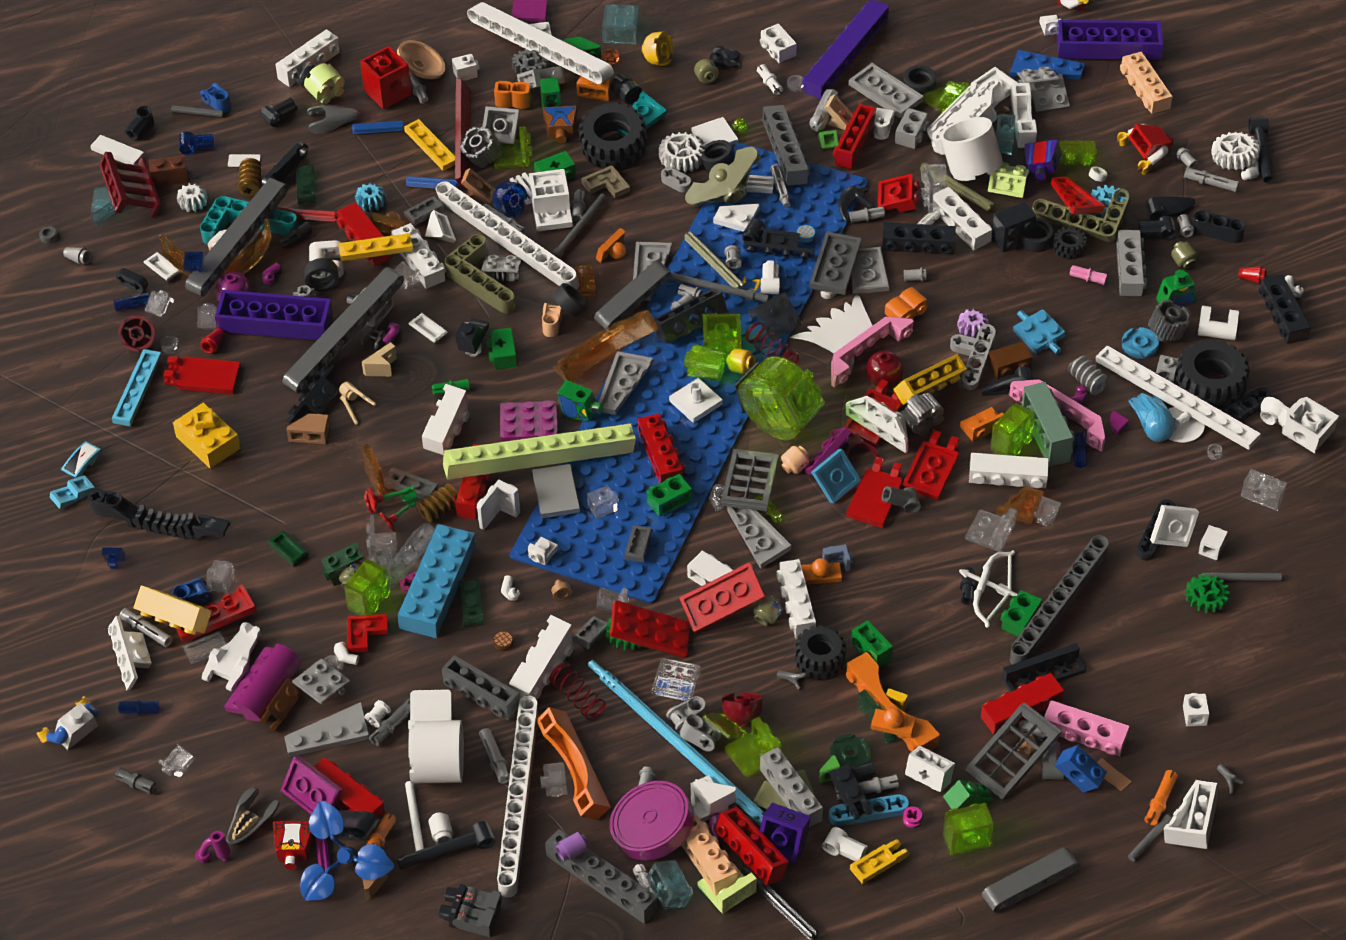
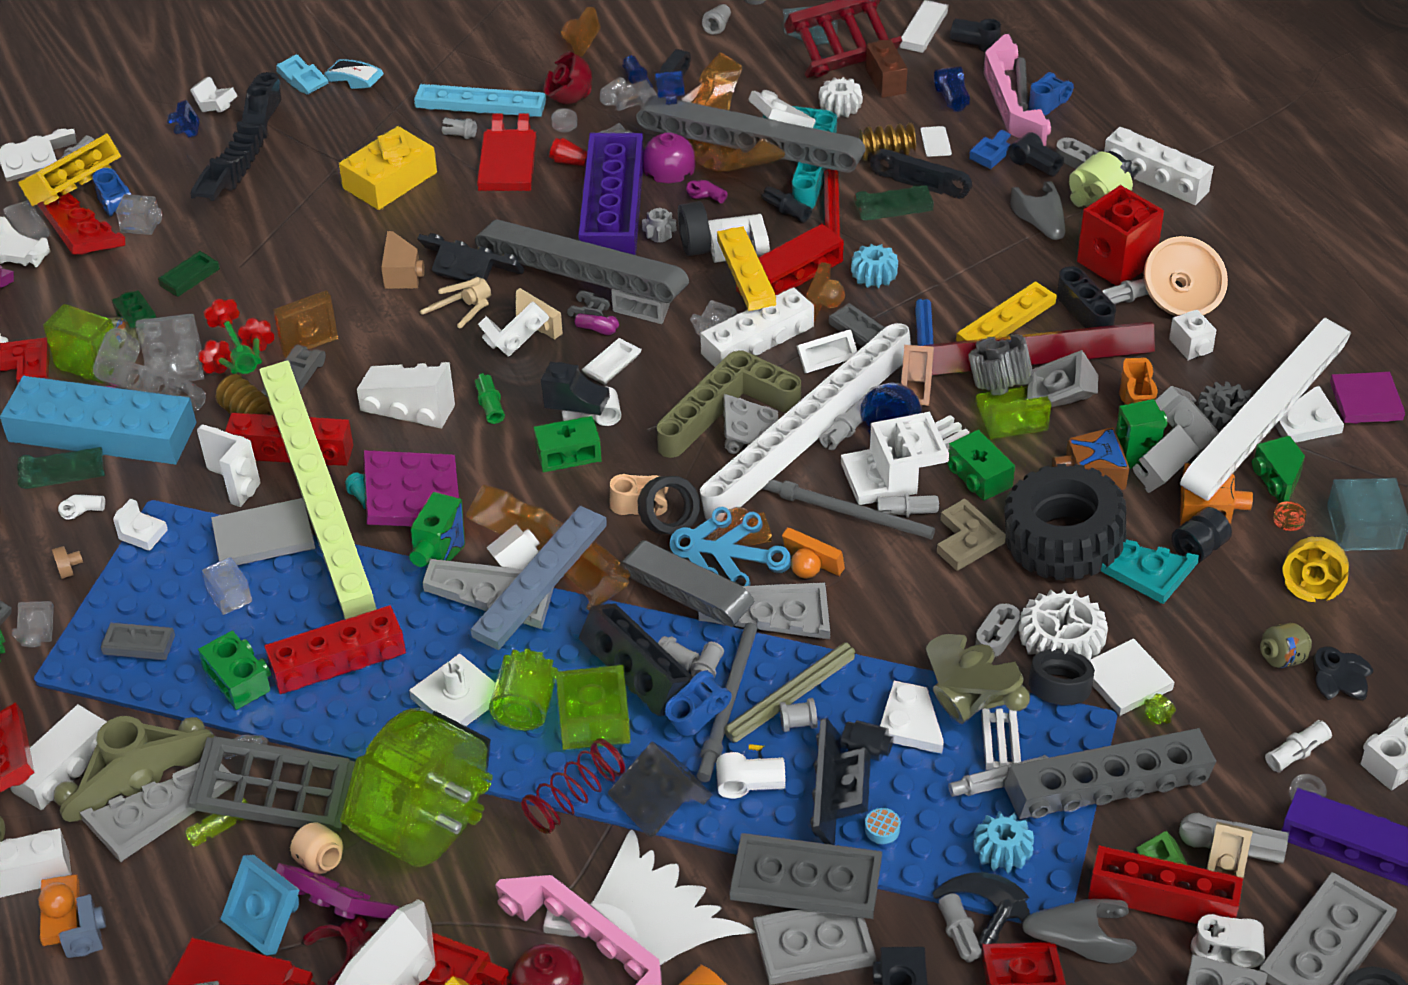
camera: 85 degrees right, 5 degrees down
(71, 328) = (582, 31): none -> clear orange tile
(90, 540) = (210, 98): none -> white bracket
(154, 317) = (610, 91): none -> clear arm
(167, 396) = (460, 127): none -> light grey pin
(210, 118) = (1018, 122): none -> bright pink slope
(218, 218) = (778, 110): none -> white wing
(269, 132) = (989, 151): none -> blue plate
(281, 93) = (1074, 151): none -> light grey beam
(378, 127) = (1034, 258): blue axle -> none
(397, 380) = (516, 331): none -> white bracket
(426, 107) = (1084, 298): none -> black beam
(571, 92) = (1165, 458): none -> light grey hinge
(594, 370) = (514, 548): none -> white brick
(598, 296) = (725, 546): none -> dark azure plant
(622, 355) = (538, 578): none -> sand blue plate
(729, 292) = (698, 702): none -> blue piece
(731, 538) = (129, 758): none -> olive piece
(740, 361) = (539, 743): yellow head -> none
(824, 187) = (1003, 842): none -> medium azure gear
(870, 172) = (1078, 929): none -> dark grey animal

